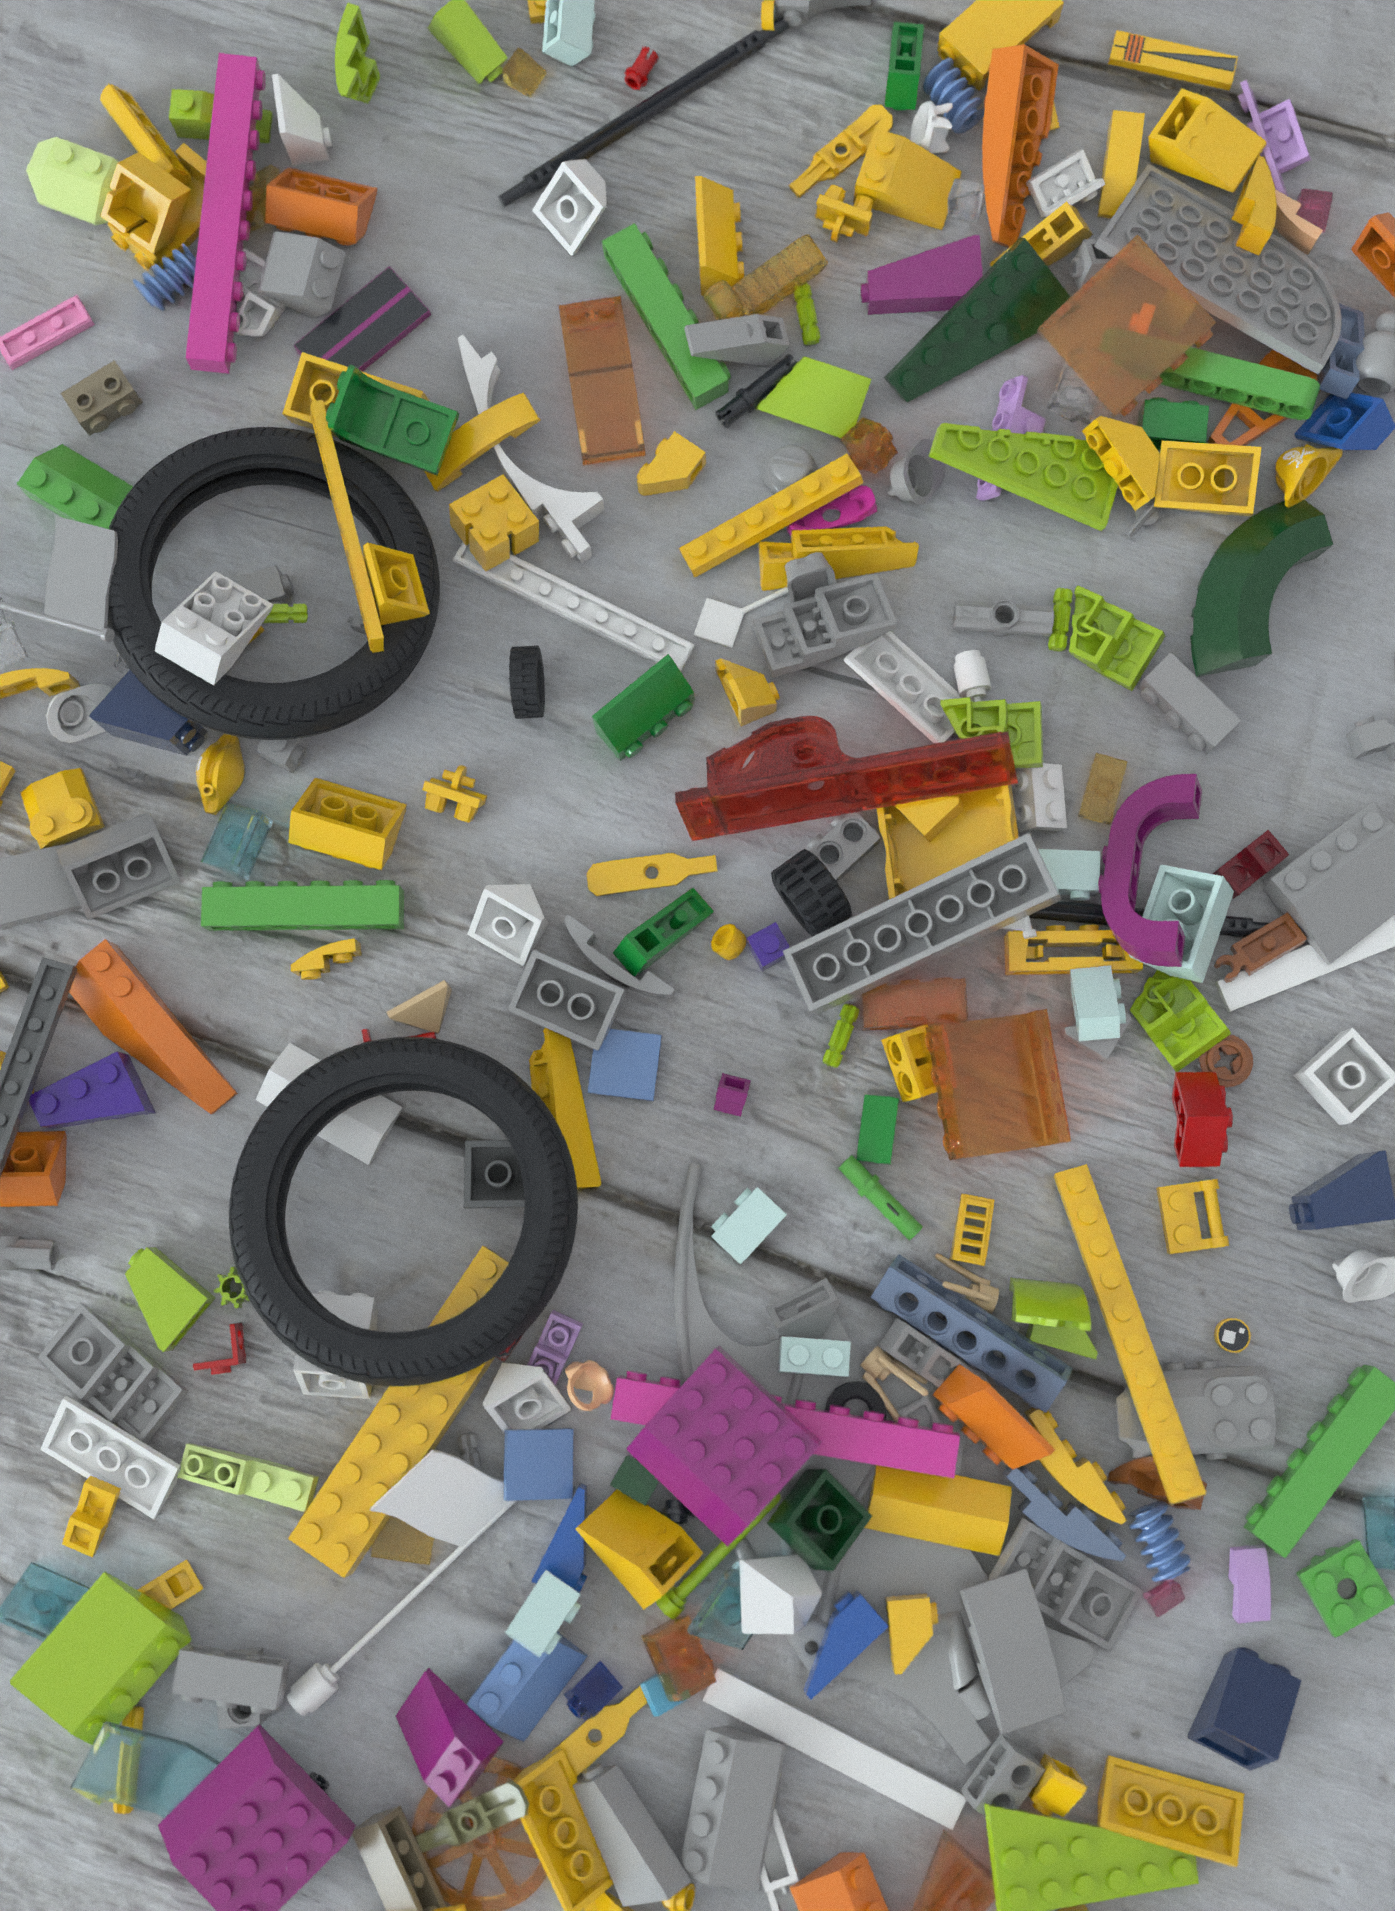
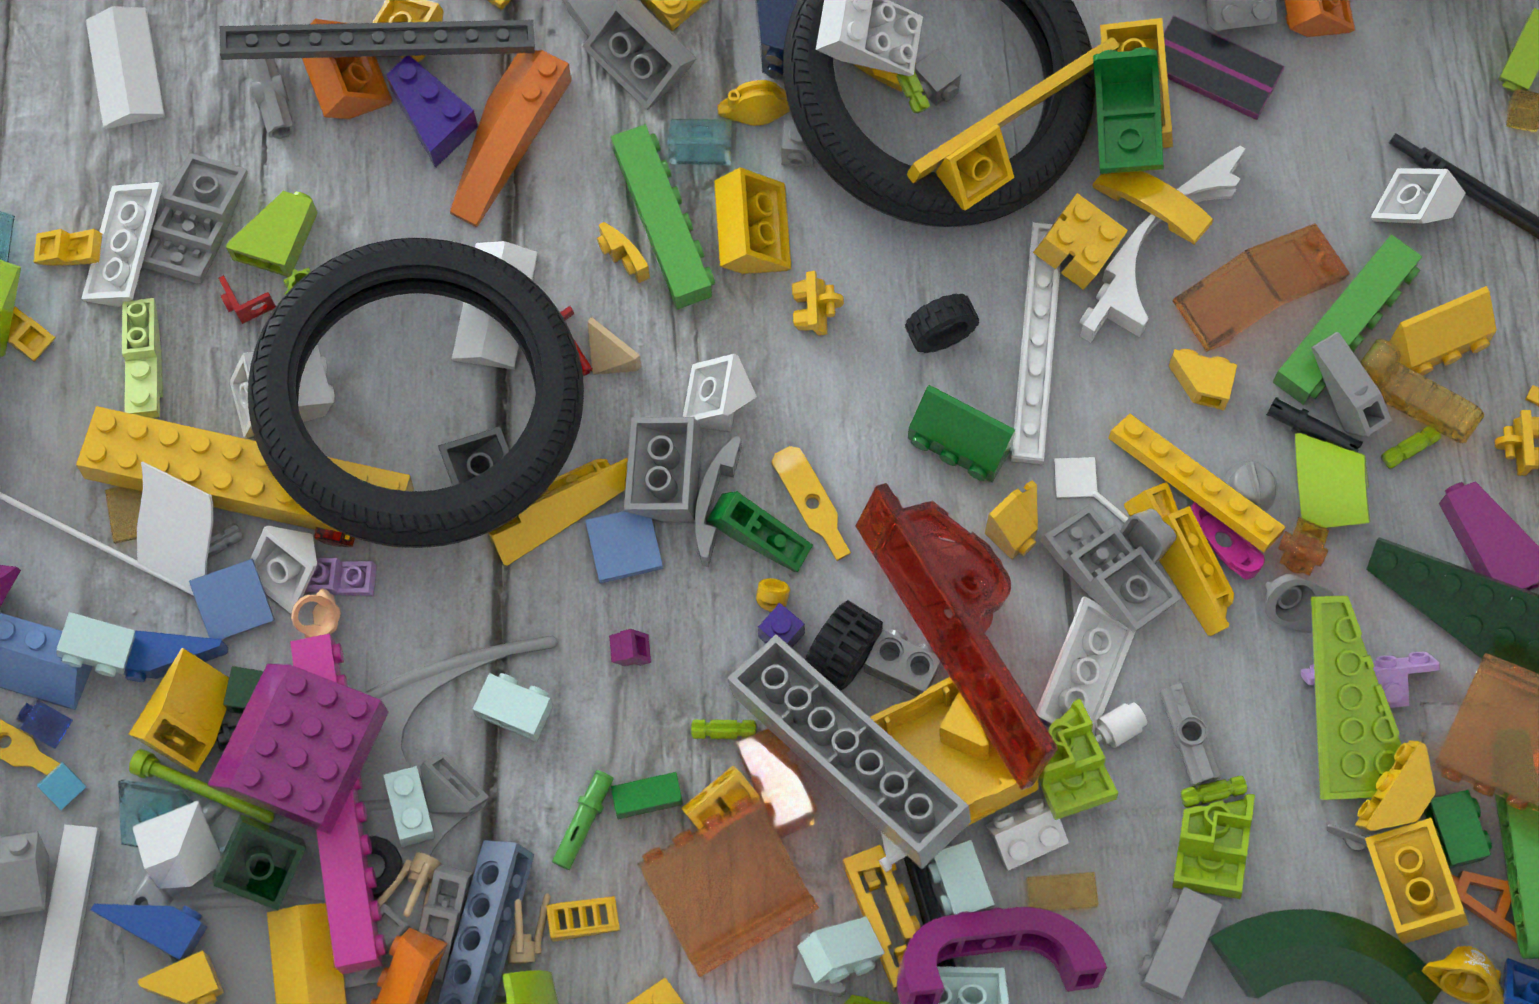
camera: 65 degrees right, 10 degrees down
(679, 1659) = (93, 787): clear orange brick -> none

